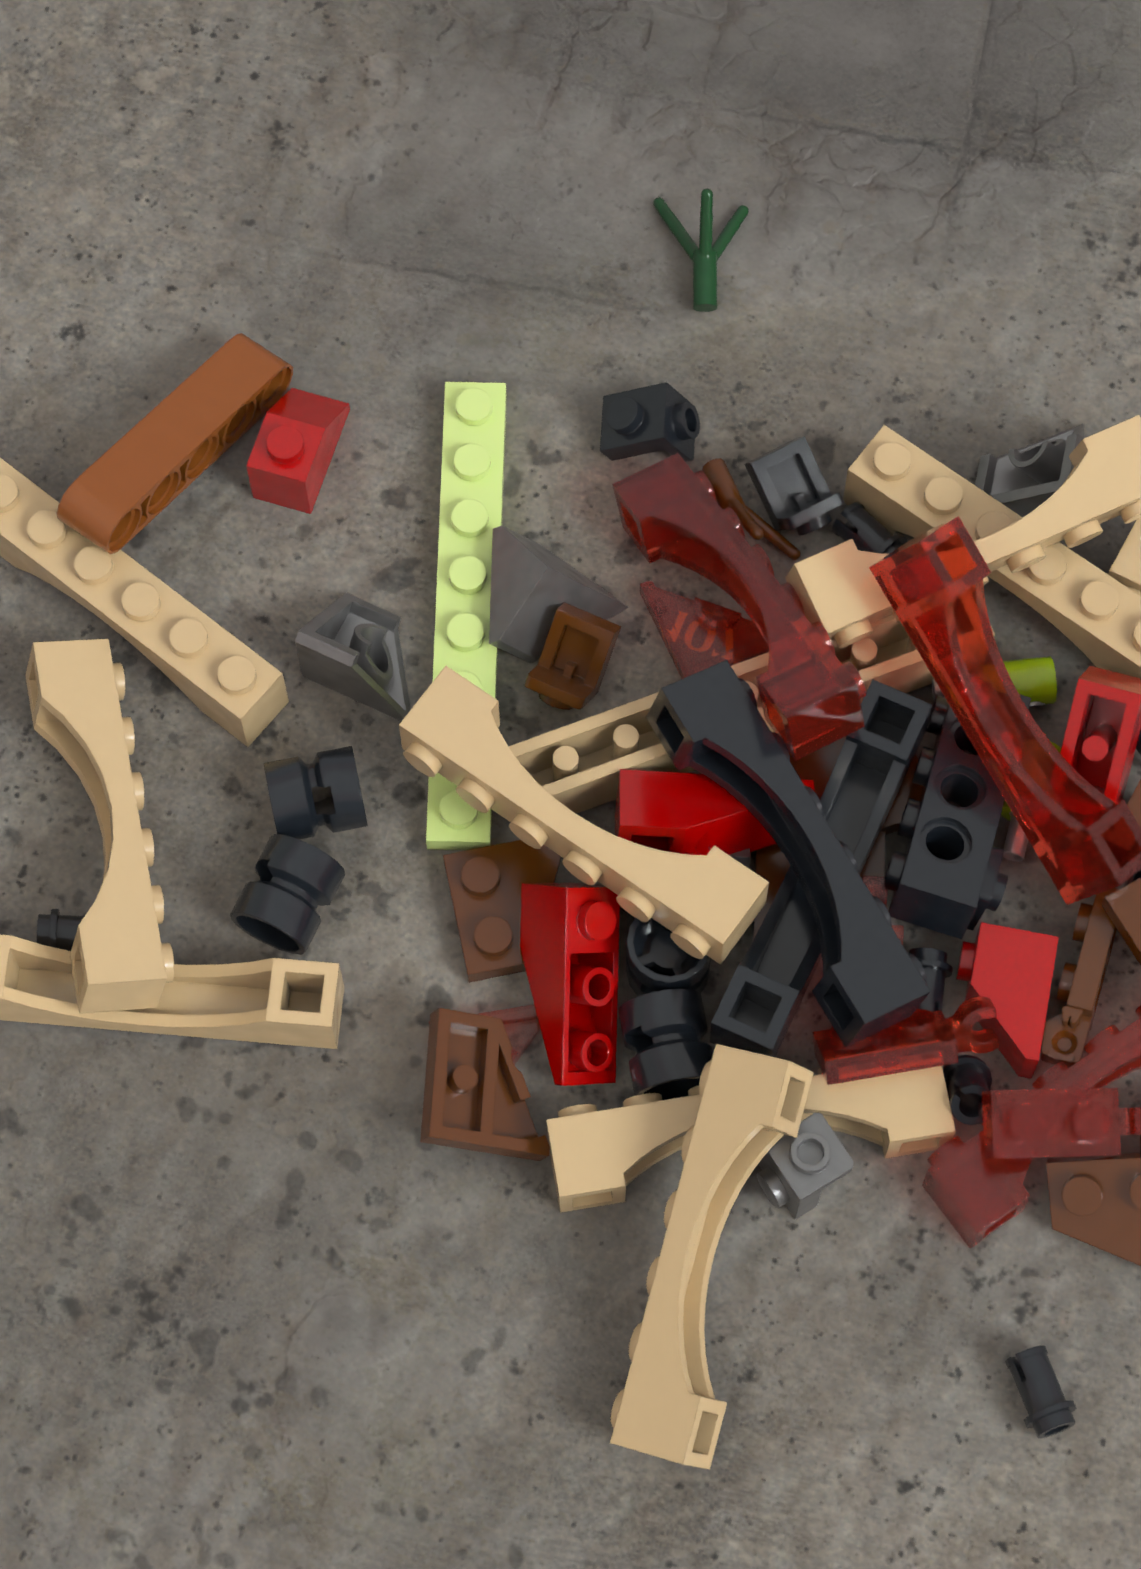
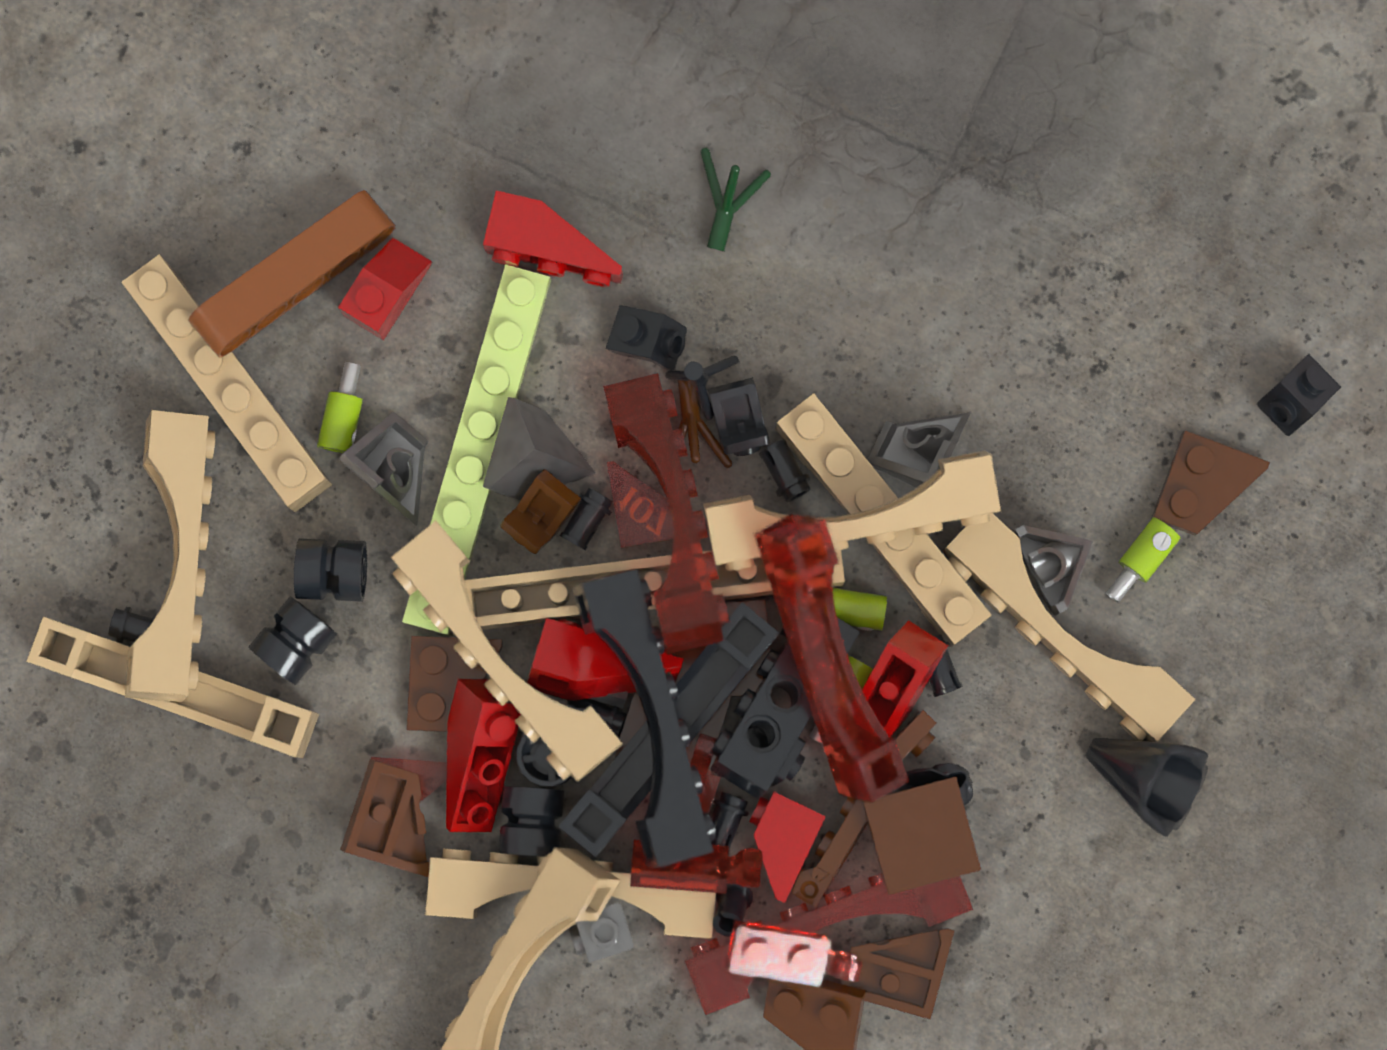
camera: 15 degrees right, 15 degrees up
(279, 606) = (341, 413): none -> lime piece
(485, 338) = (537, 235): none -> red slope
(633, 657) = (586, 518): none -> black pin
(732, 442) = (698, 378): none -> black plant

